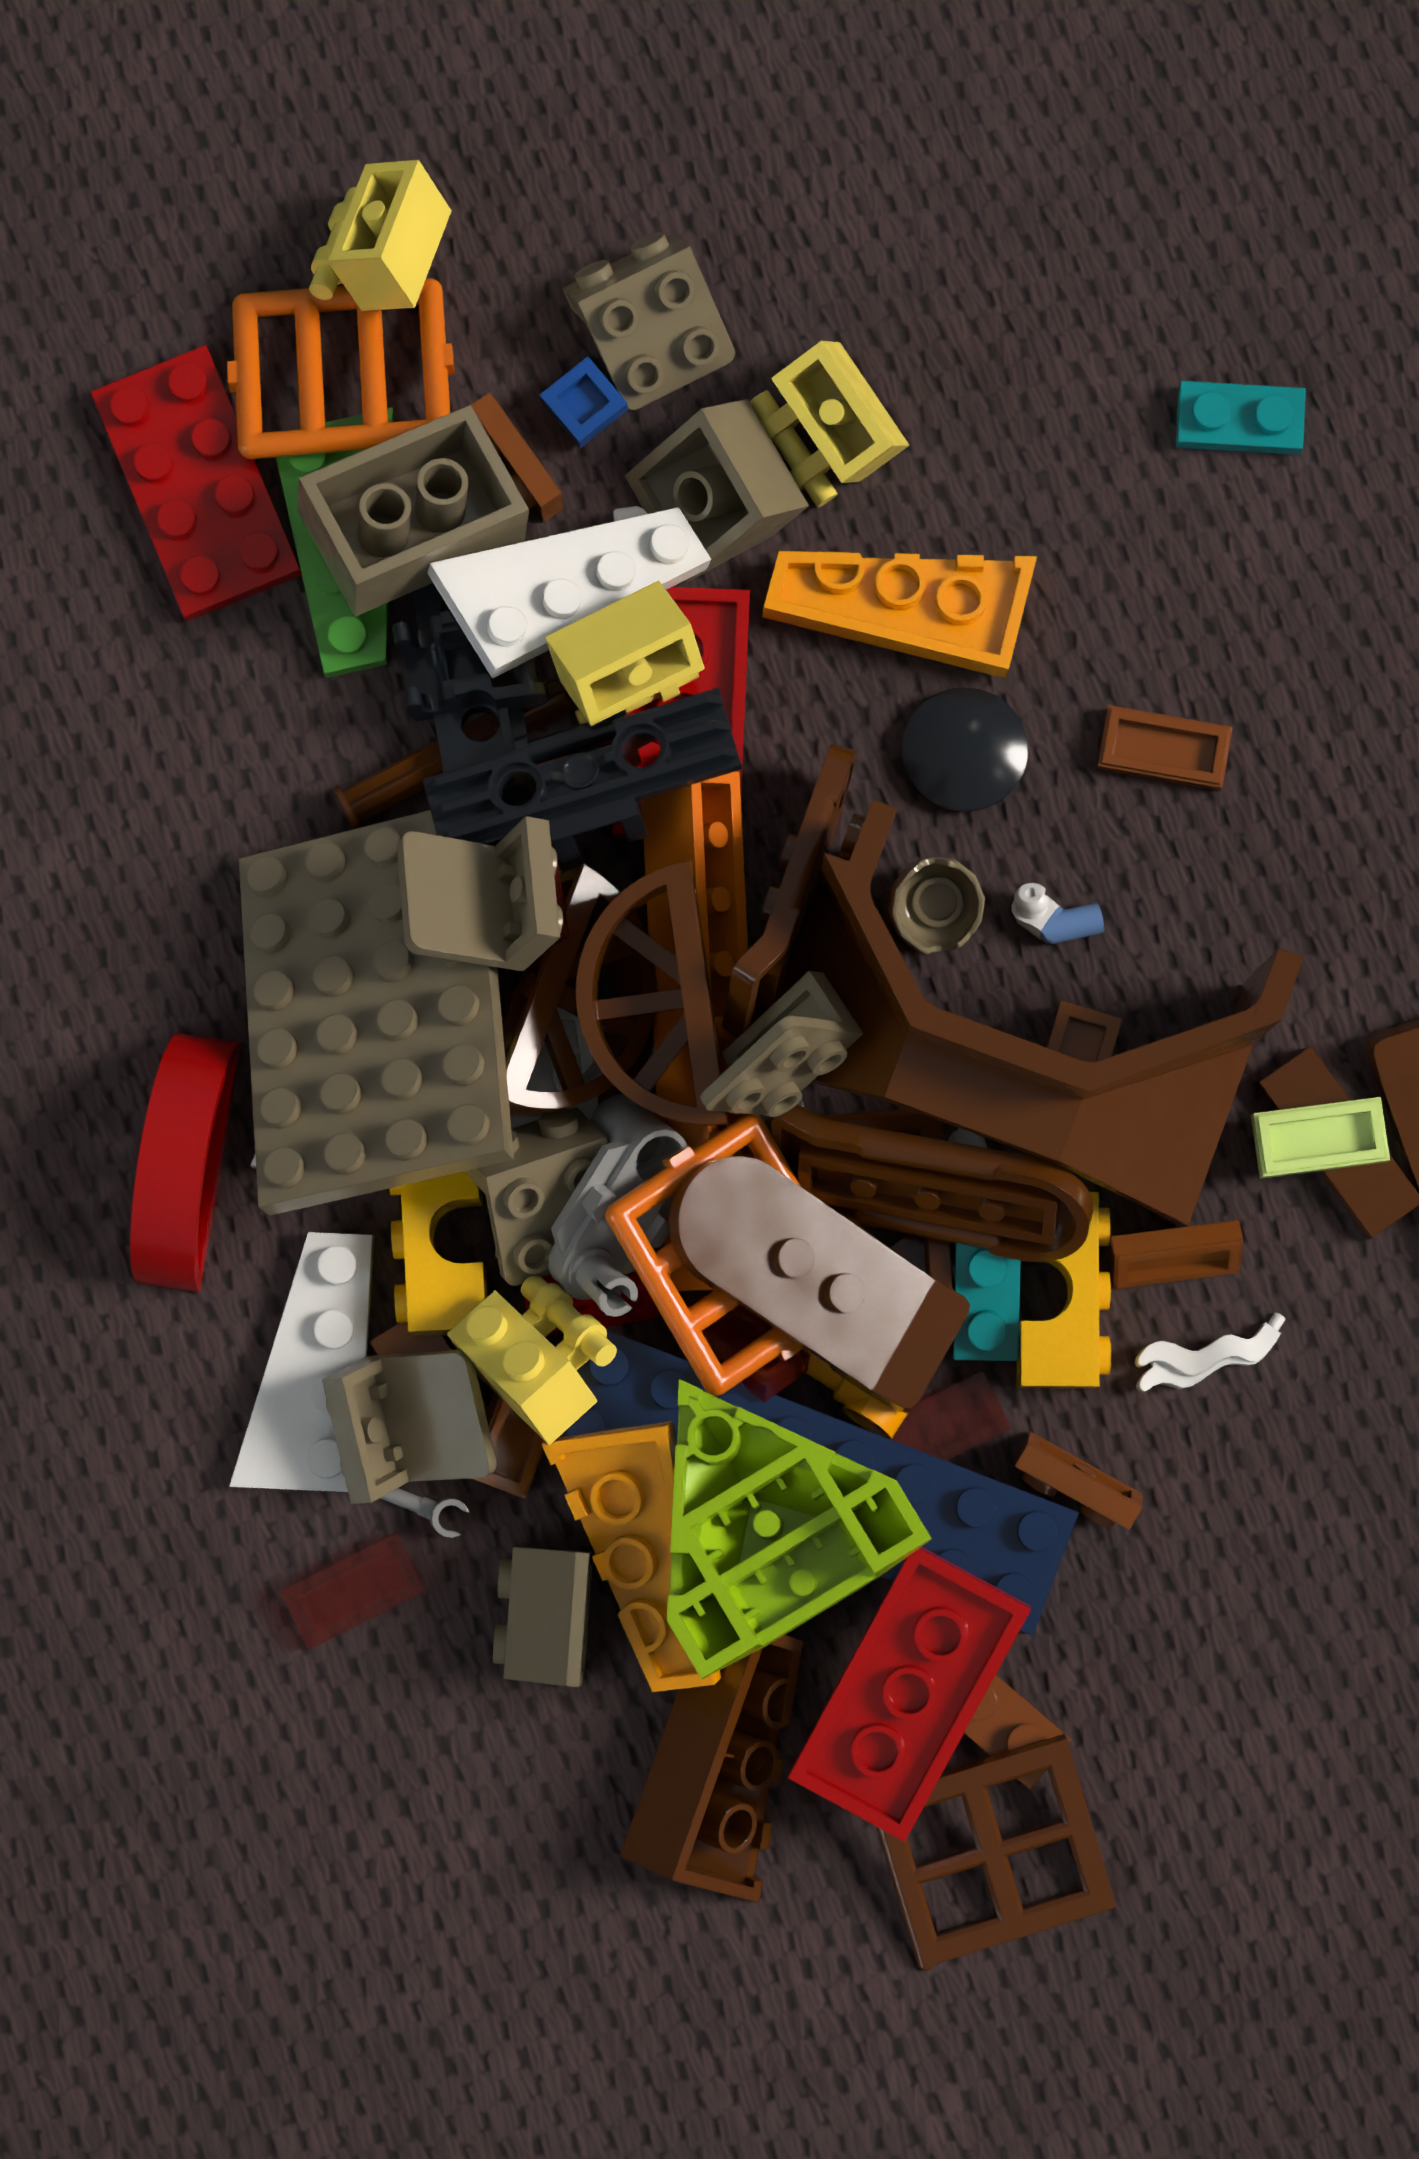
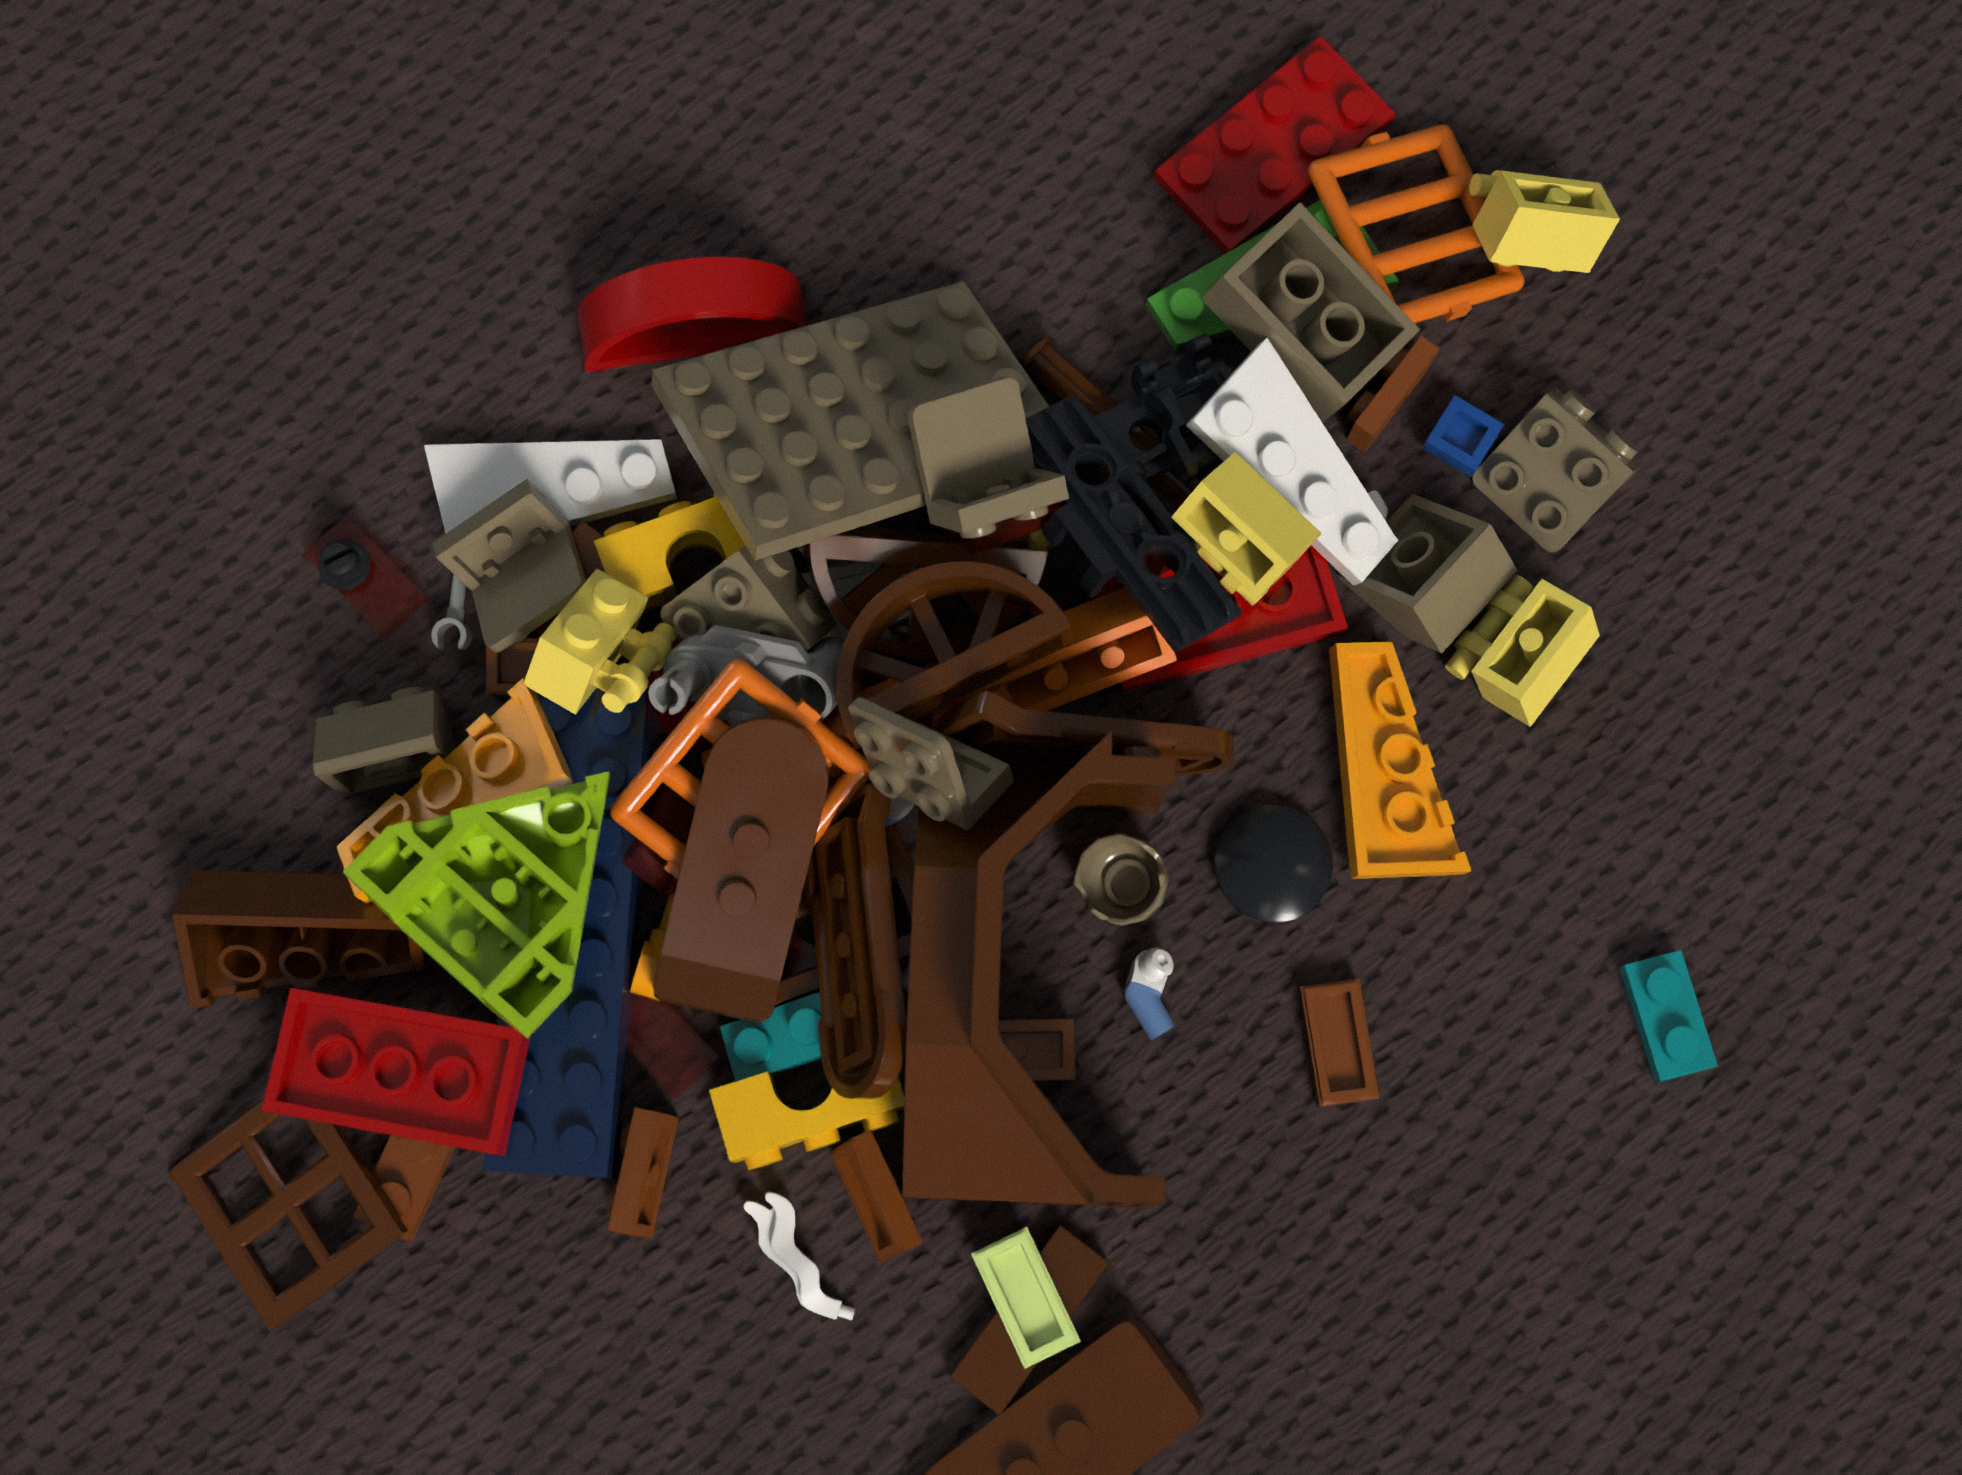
camera: 70 degrees right, 5 degrees down
(337, 1607) = (344, 564): none -> black piece

